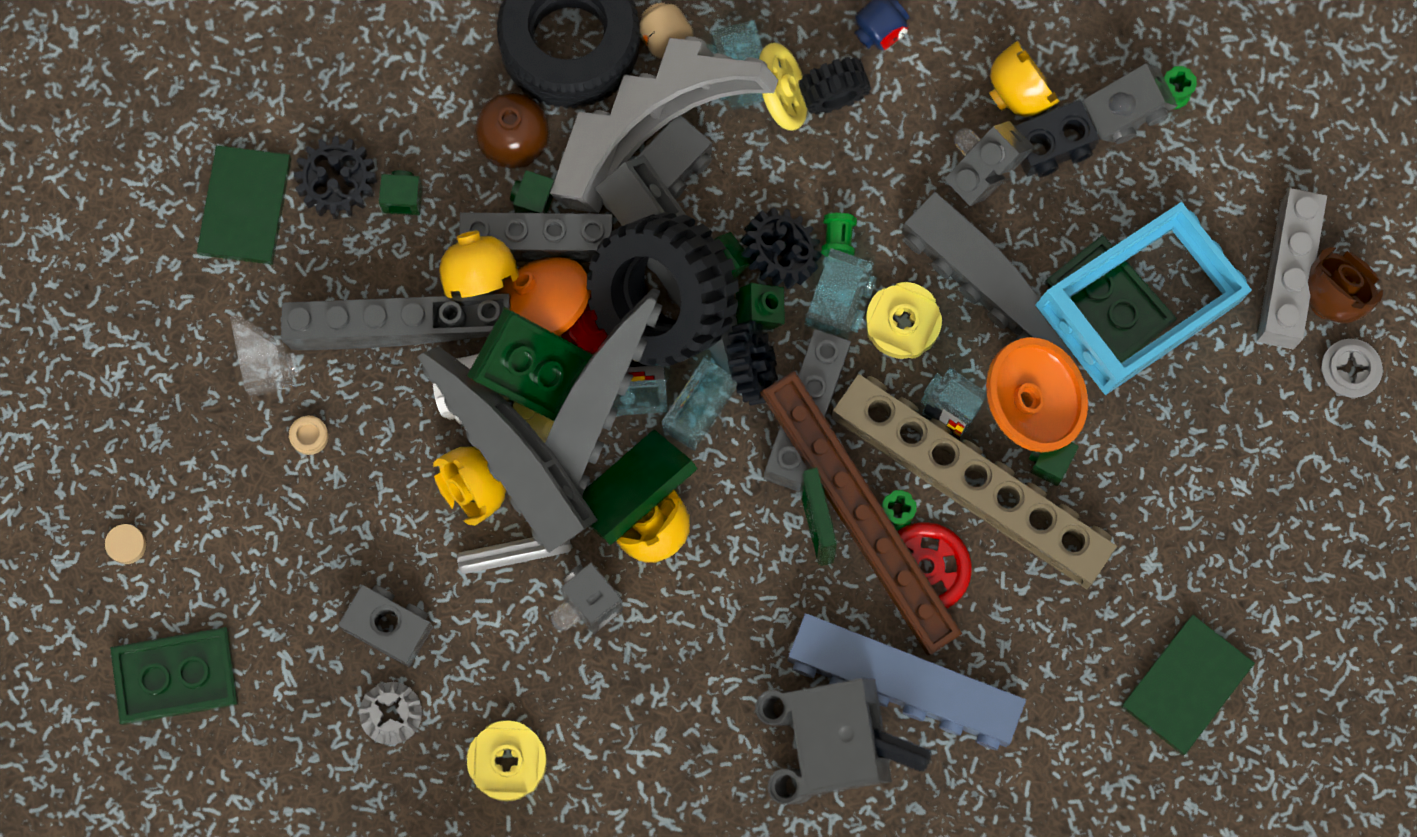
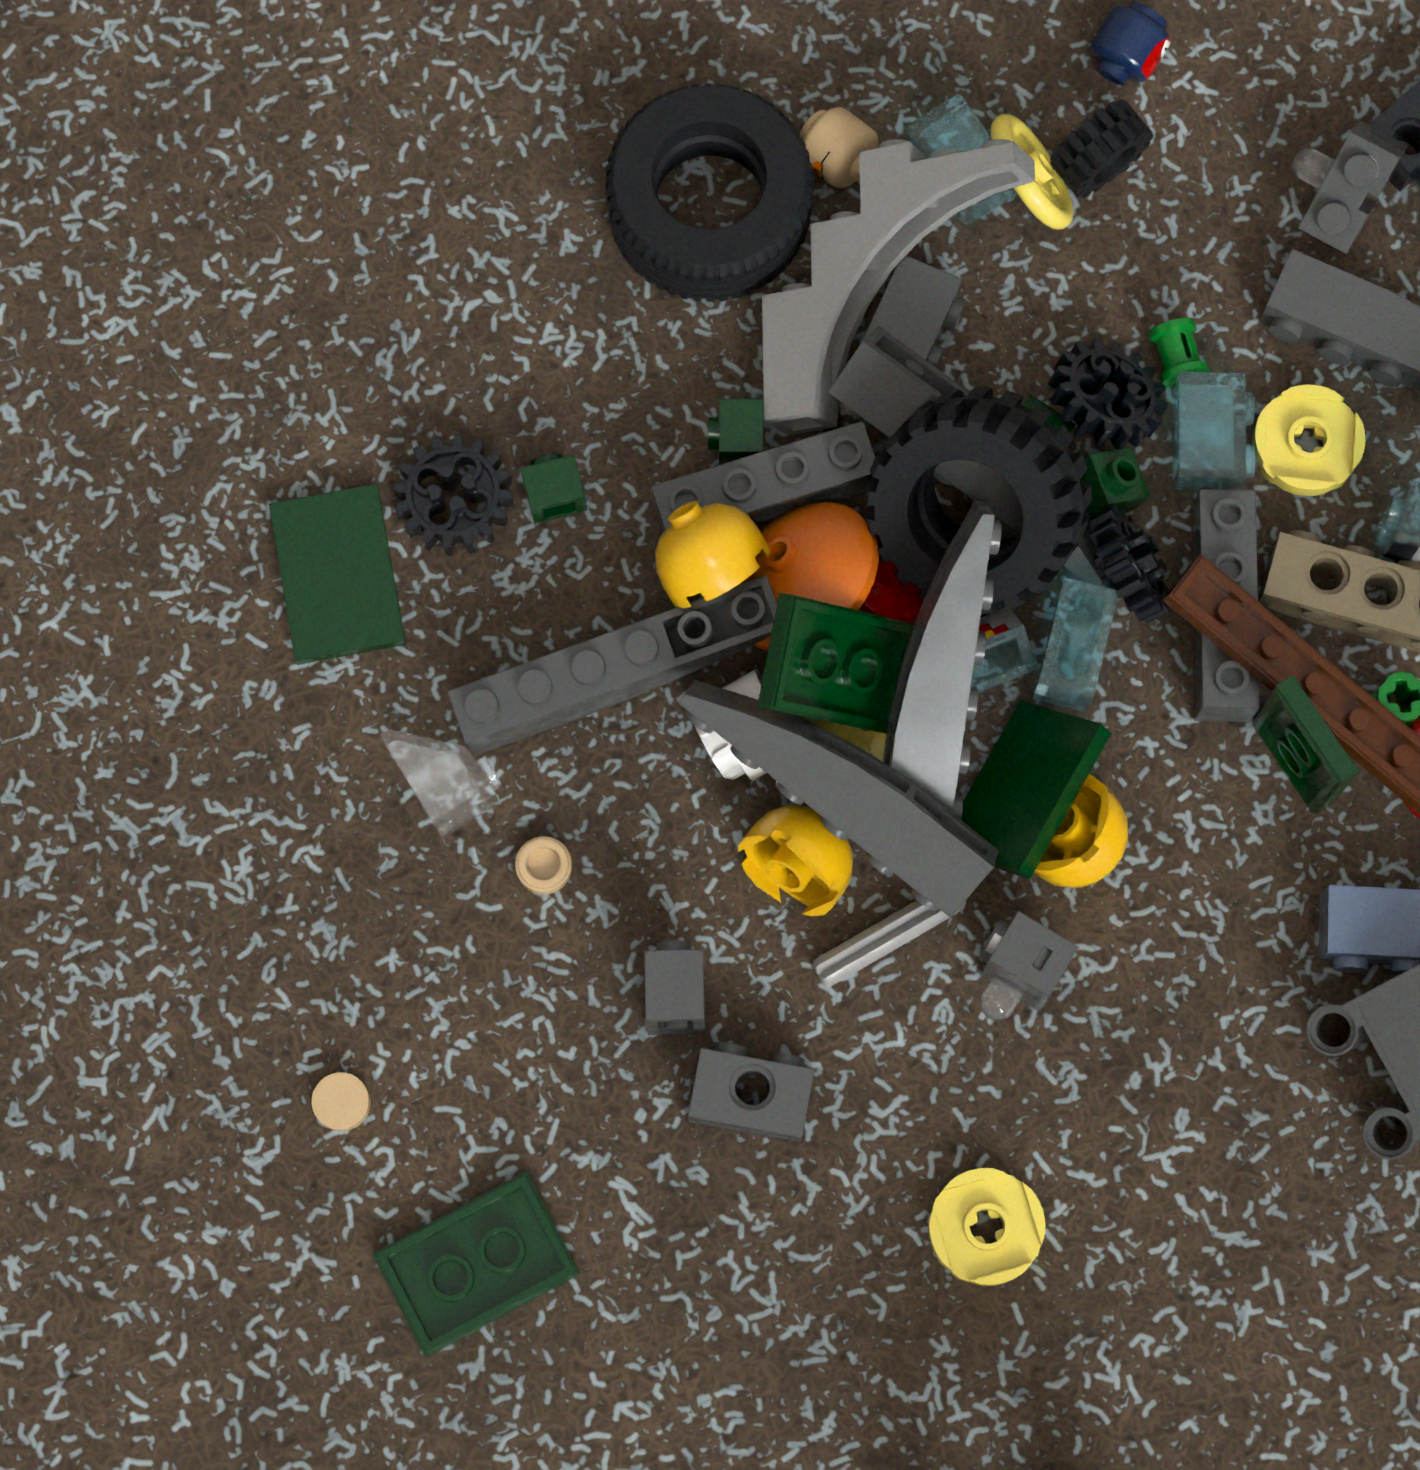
camera: 15 degrees left, 0 degrees up
(358, 541) = (674, 989): none -> dark grey brick
(391, 731) = (773, 1226): light grey gear -> none
(512, 130) = (674, 351): reddish brown cylinder -> none
(1020, 83) = (1352, 66): yellow cylinder -> none

